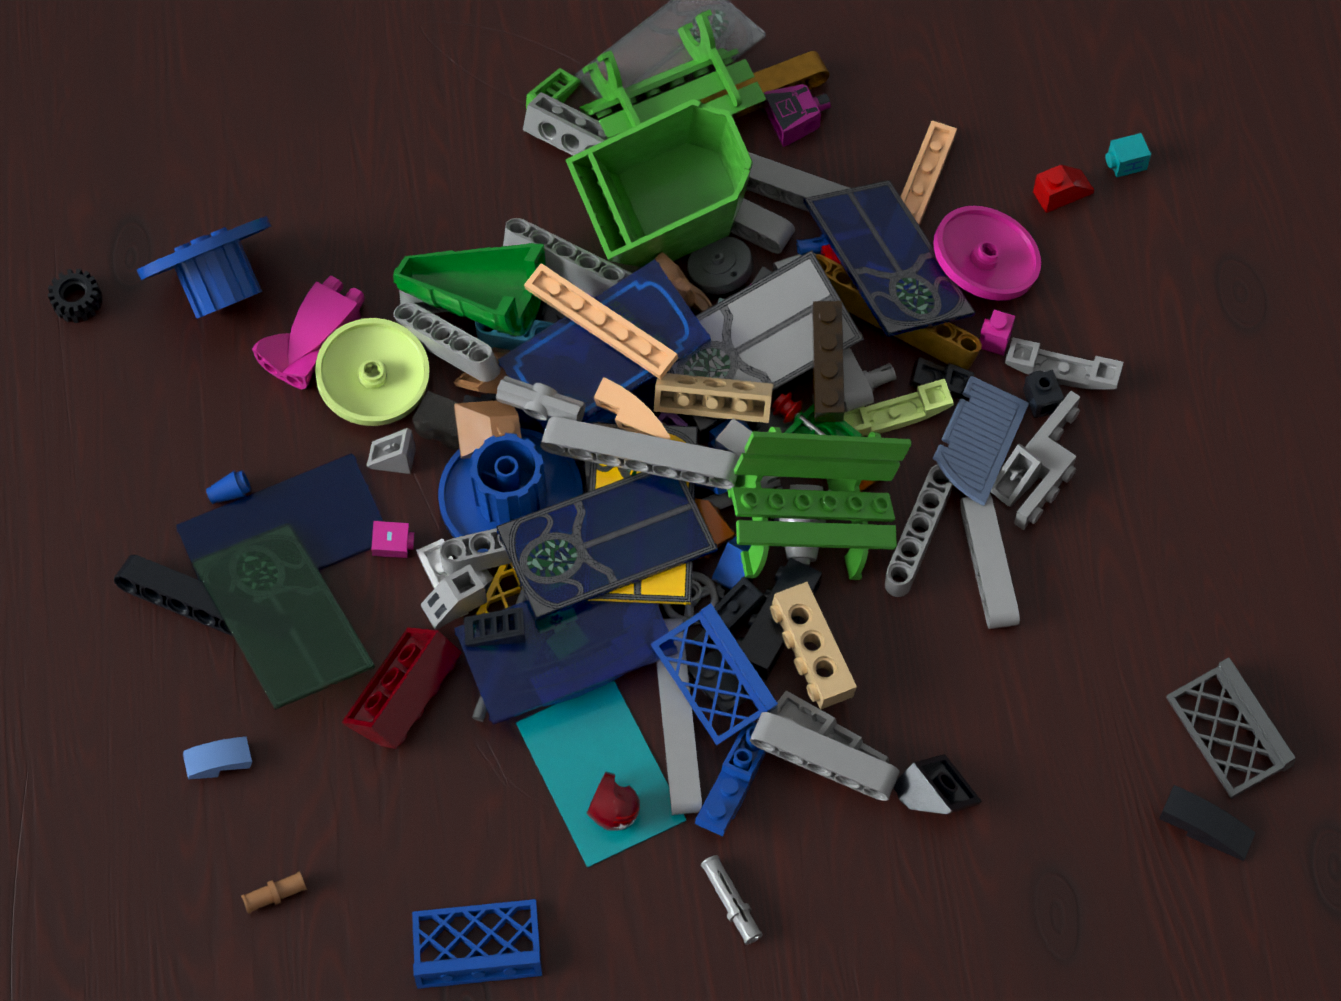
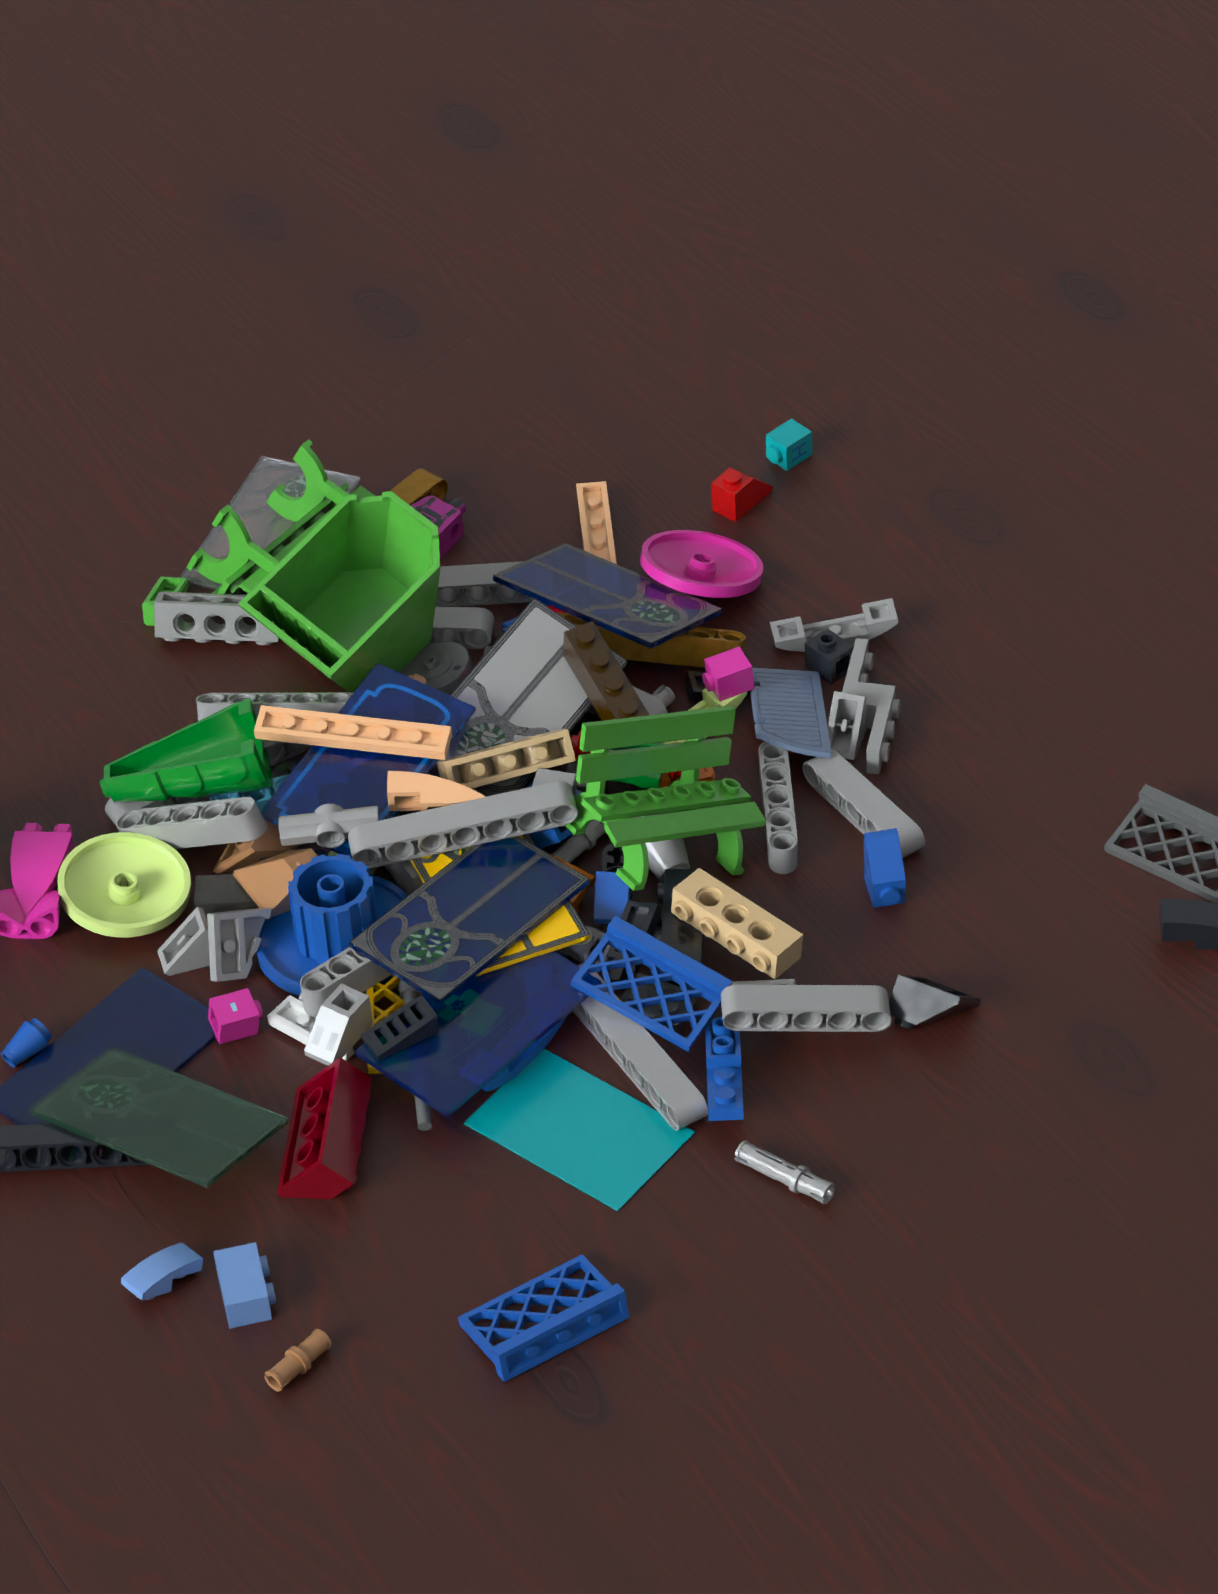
camera: 25 degrees left, 20 degrees down
(269, 802) = (243, 1285): none -> medium blue brick
(423, 469) = (234, 941): none -> light grey wing
(614, 805) = (613, 1137): dark red helmet -> none
(941, 385) = (728, 674): none -> dark pink brick
(966, 641) = (884, 868): none -> blue slope
(997, 332) = (752, 622): dark pink brick -> none

